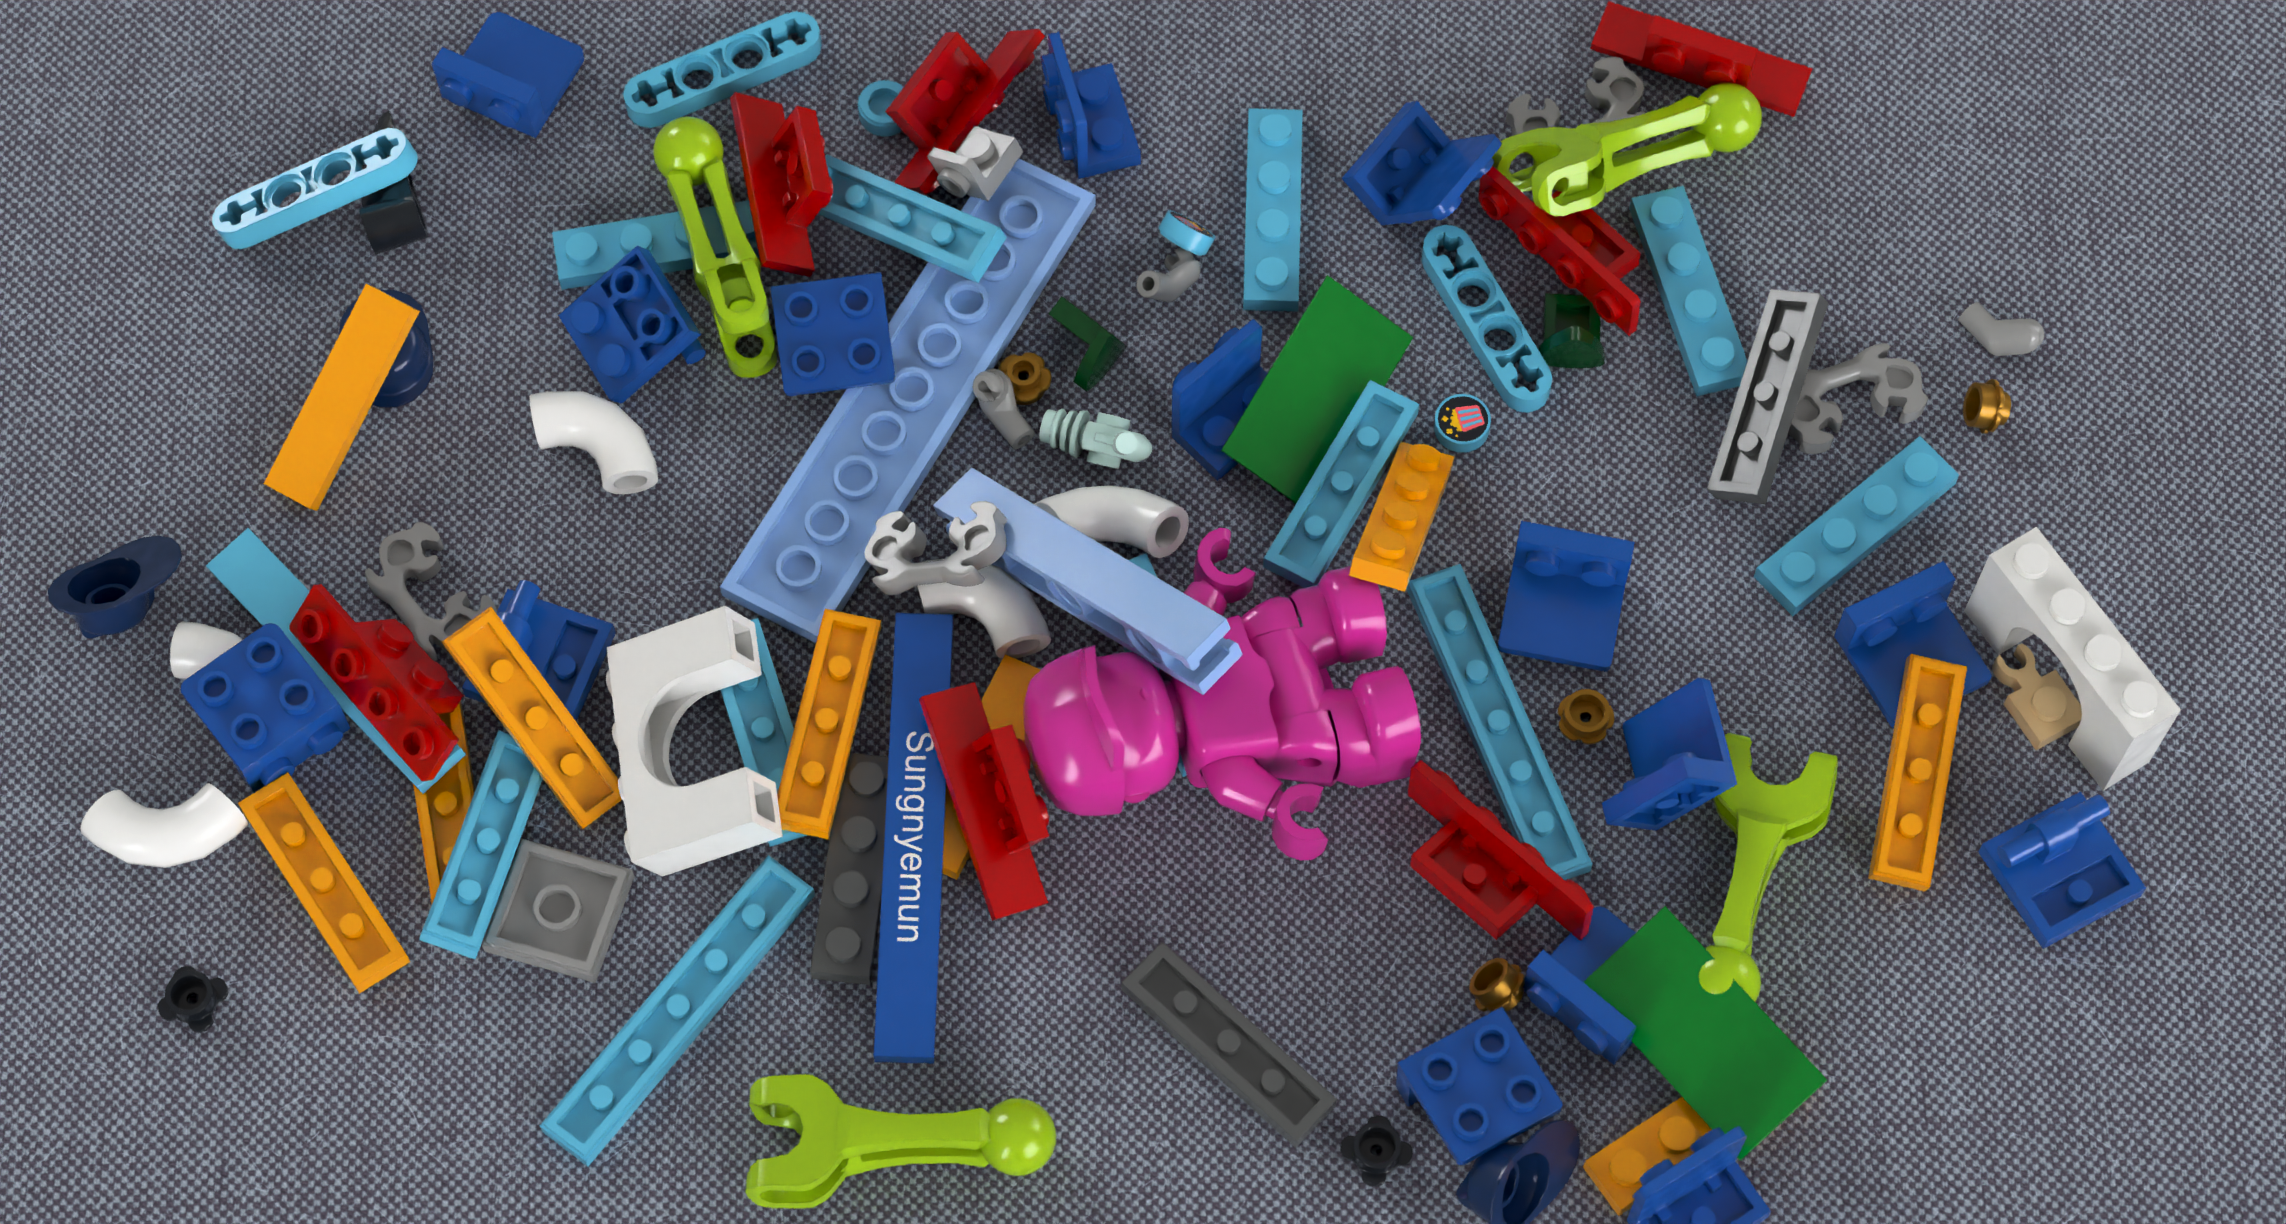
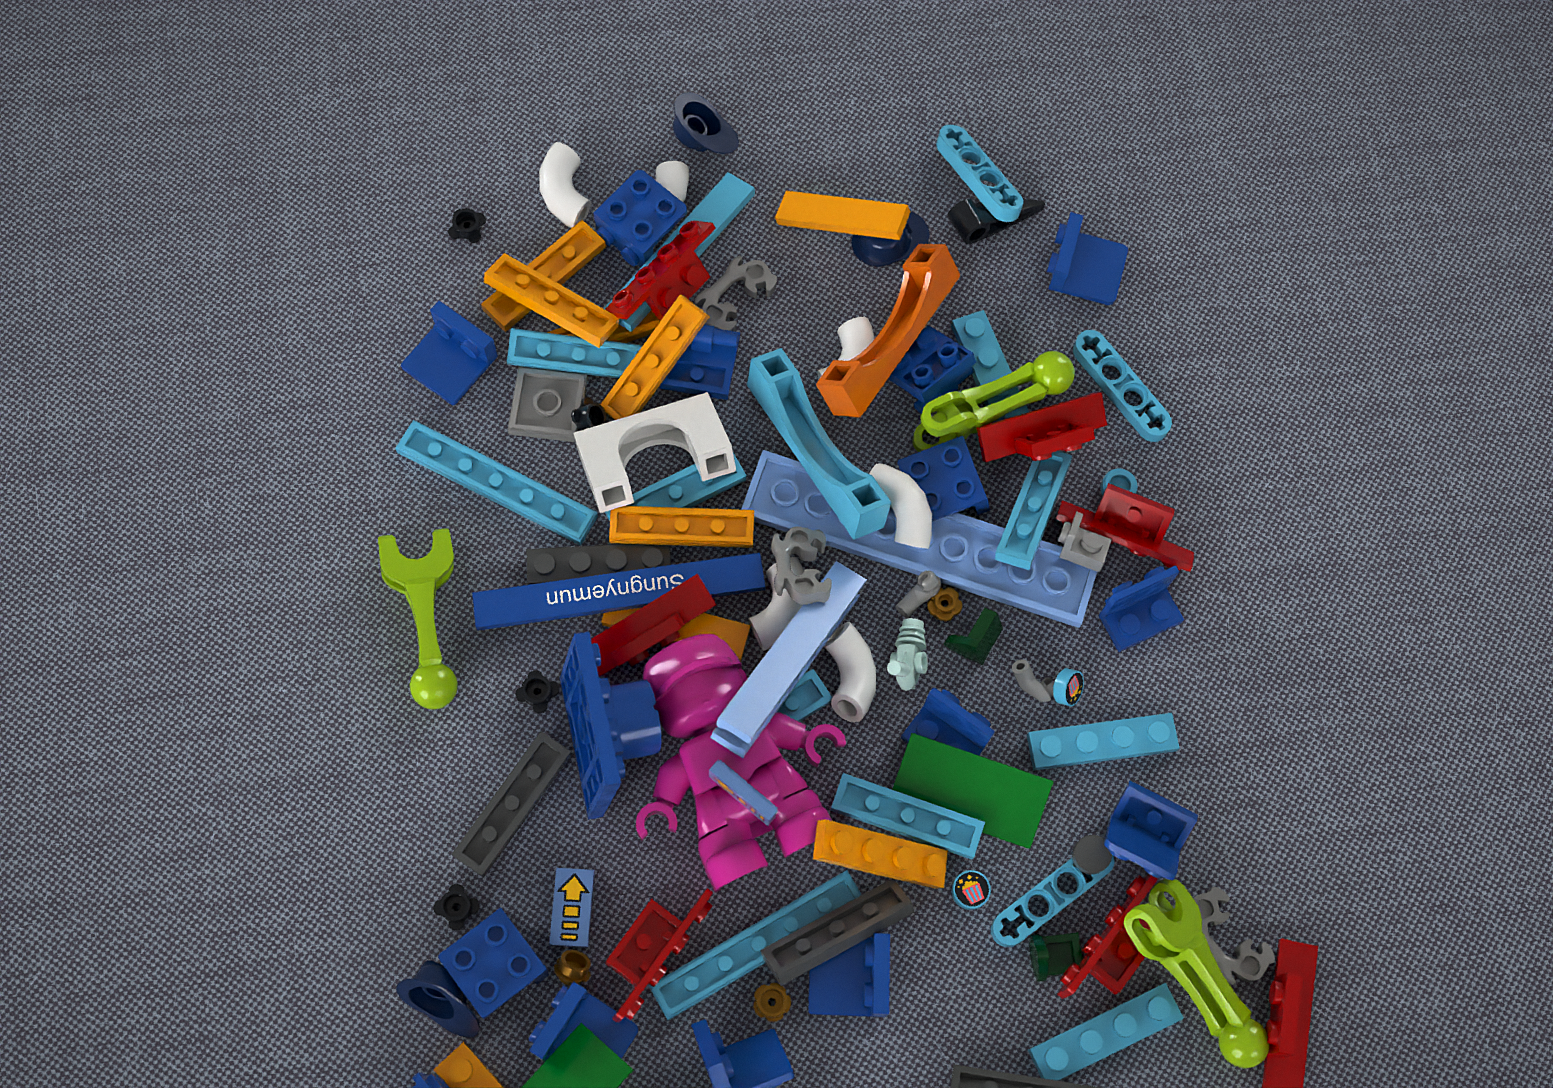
camera: 75 degrees right, 5 degrees up
(385, 861) = (551, 300): none -> light orange plate
(436, 1049) = (450, 355): none -> blue bracket
(601, 840) = (588, 414): none -> black plate
(640, 538) = (848, 490): none -> medium azure arch
(641, 407) = (927, 280): none -> orange arch
(867, 381) = (908, 504): none -> white cylinder
(1051, 970) = (537, 681): none -> black plate
(1148, 866) = (605, 723): none -> blue piece
(1294, 663) = (743, 792): none -> medium blue tile
(1403, 980) = (572, 908): none -> medium blue tile
(1441, 248) = (1091, 855): none -> dark grey tile
(1502, 600) = (837, 931): none -> dark grey plate

